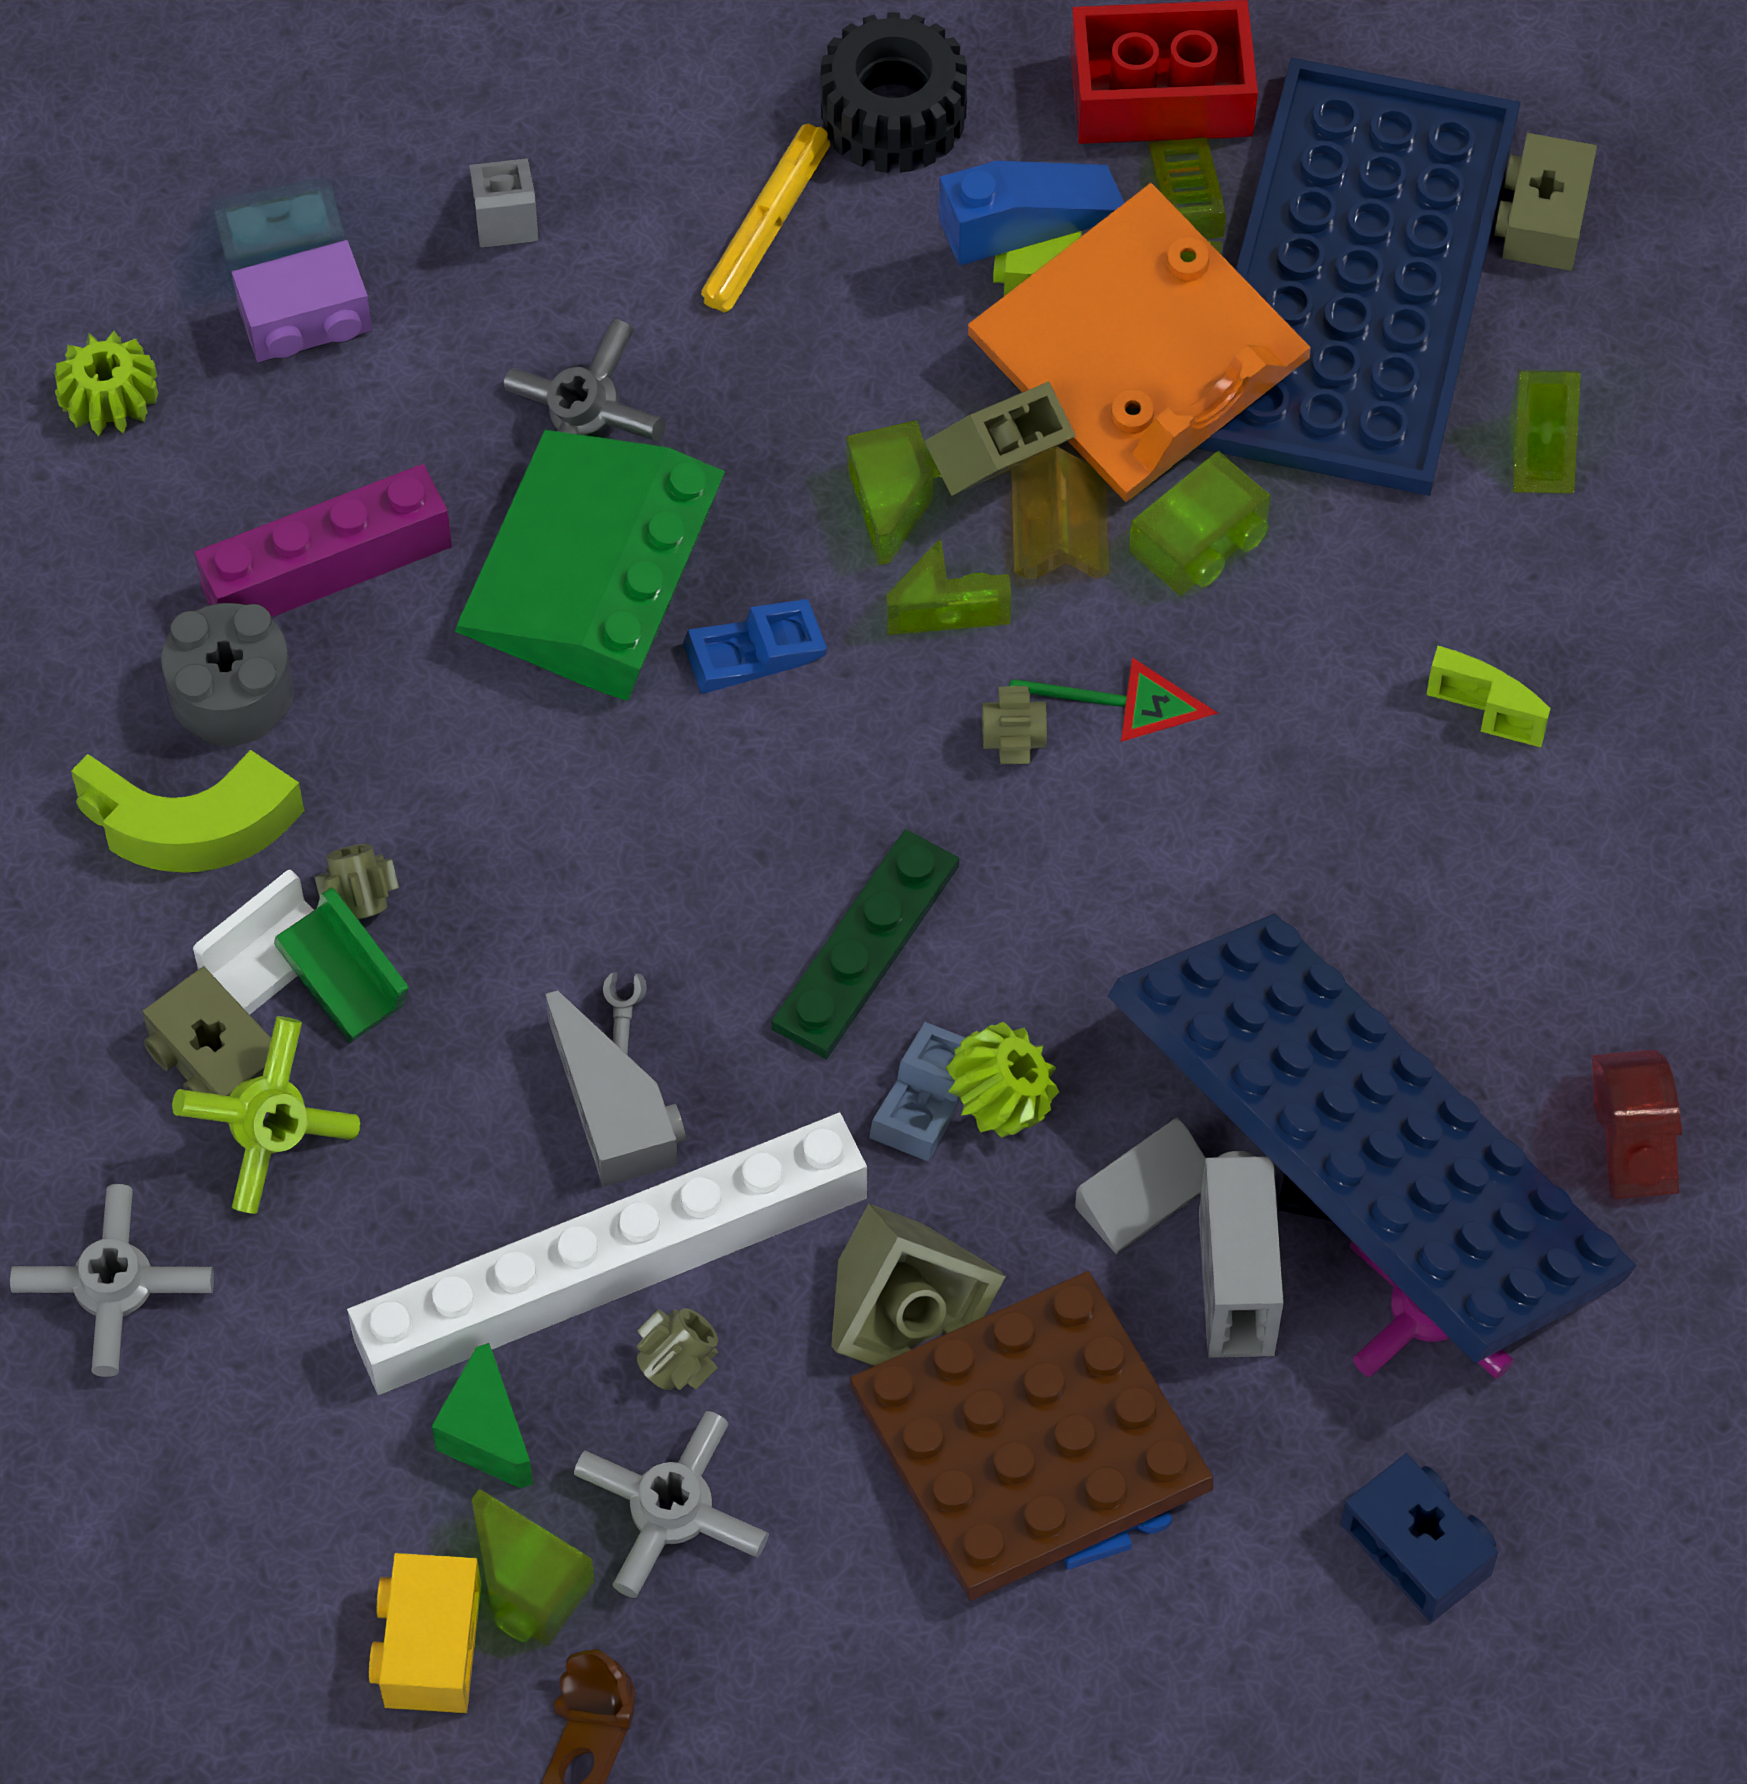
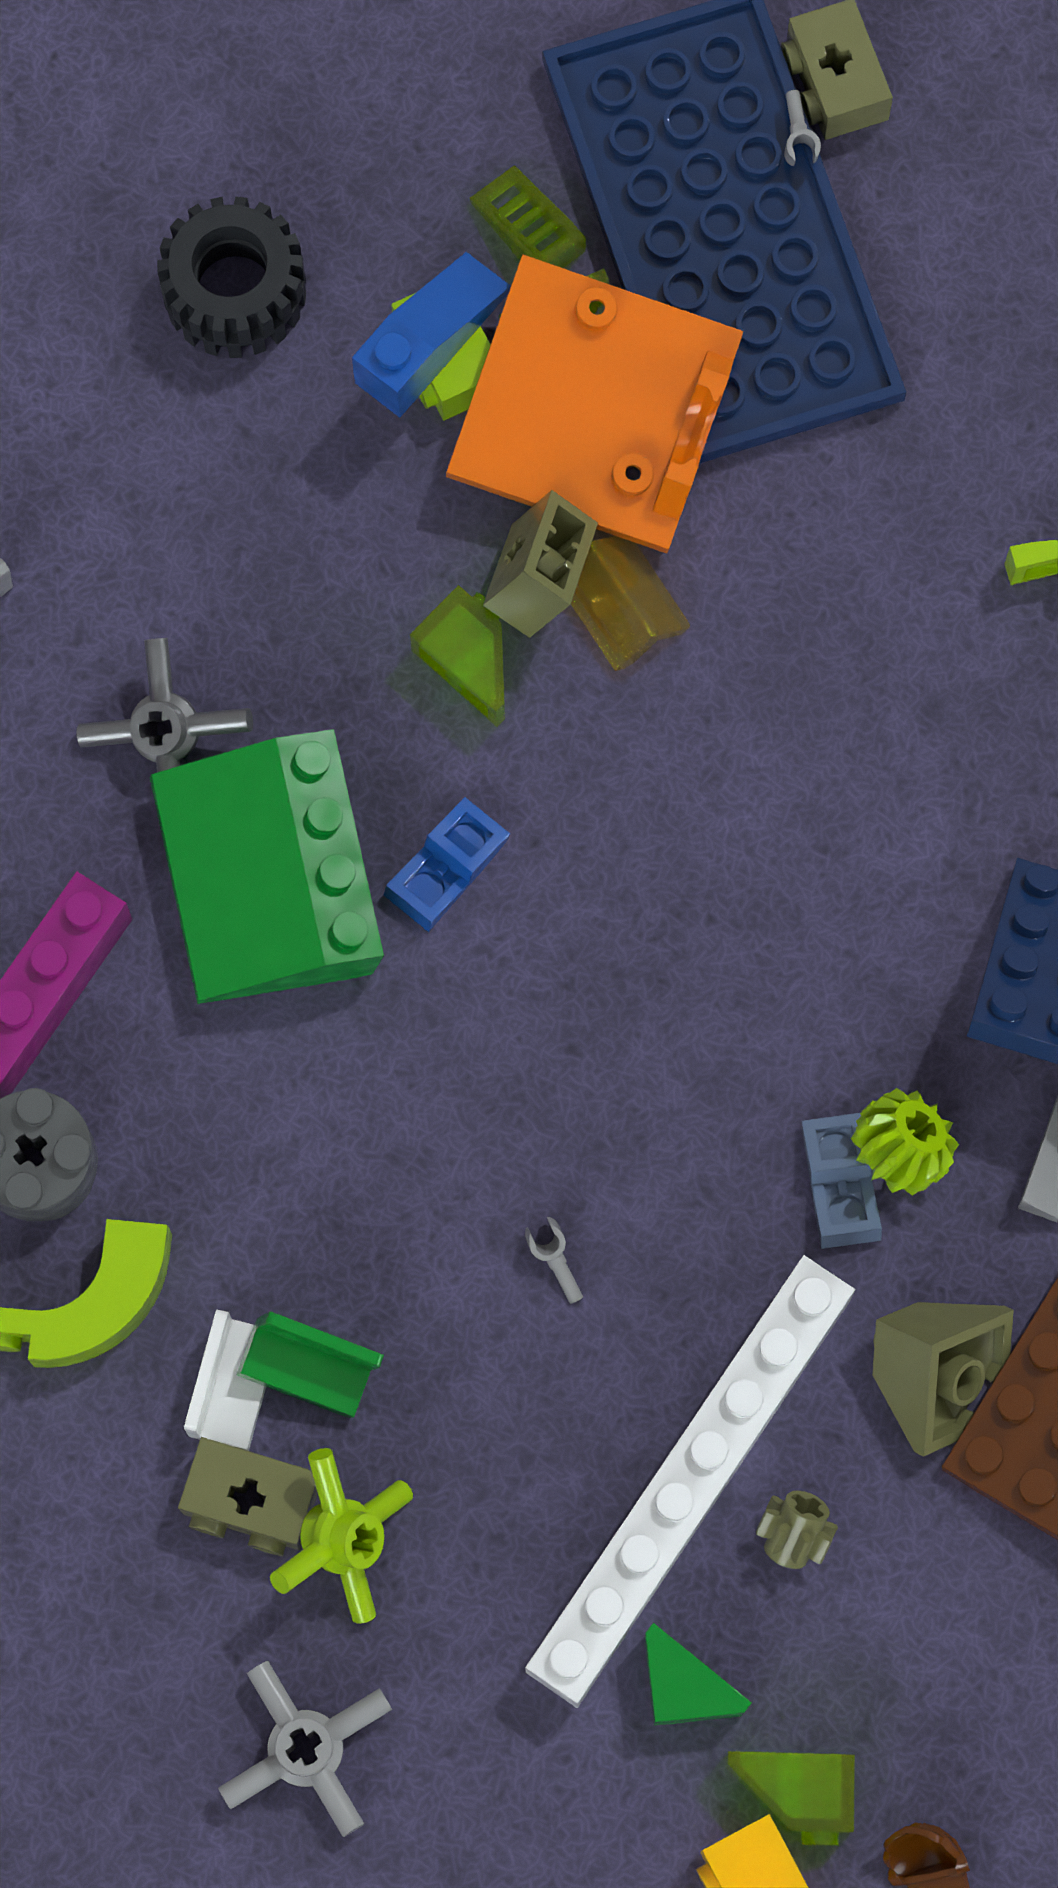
camera: 30 degrees left, 15 degrees up
(359, 879) = (268, 1279): olive gear -> none
(615, 1098) = (605, 1344): light grey slope -> none
(681, 1522) = (860, 1680): light grey bar -> none
(765, 218) = (195, 455): yellow axle -> none
(865, 944) = (709, 1079): dark green plate -> none
(931, 602) = (570, 740): clear neon green slope -> none
(1014, 725) = (709, 815): olive gear -> none
(1149, 705) = (797, 723): piece -> none
(1163, 71) = (448, 128): red brick -> none
(1200, 524) = (743, 539): clear neon green brick -> none
(1475, 227) = (799, 129): none -> light grey hand
(1544, 430) = (967, 292): clear neon green slope -> none

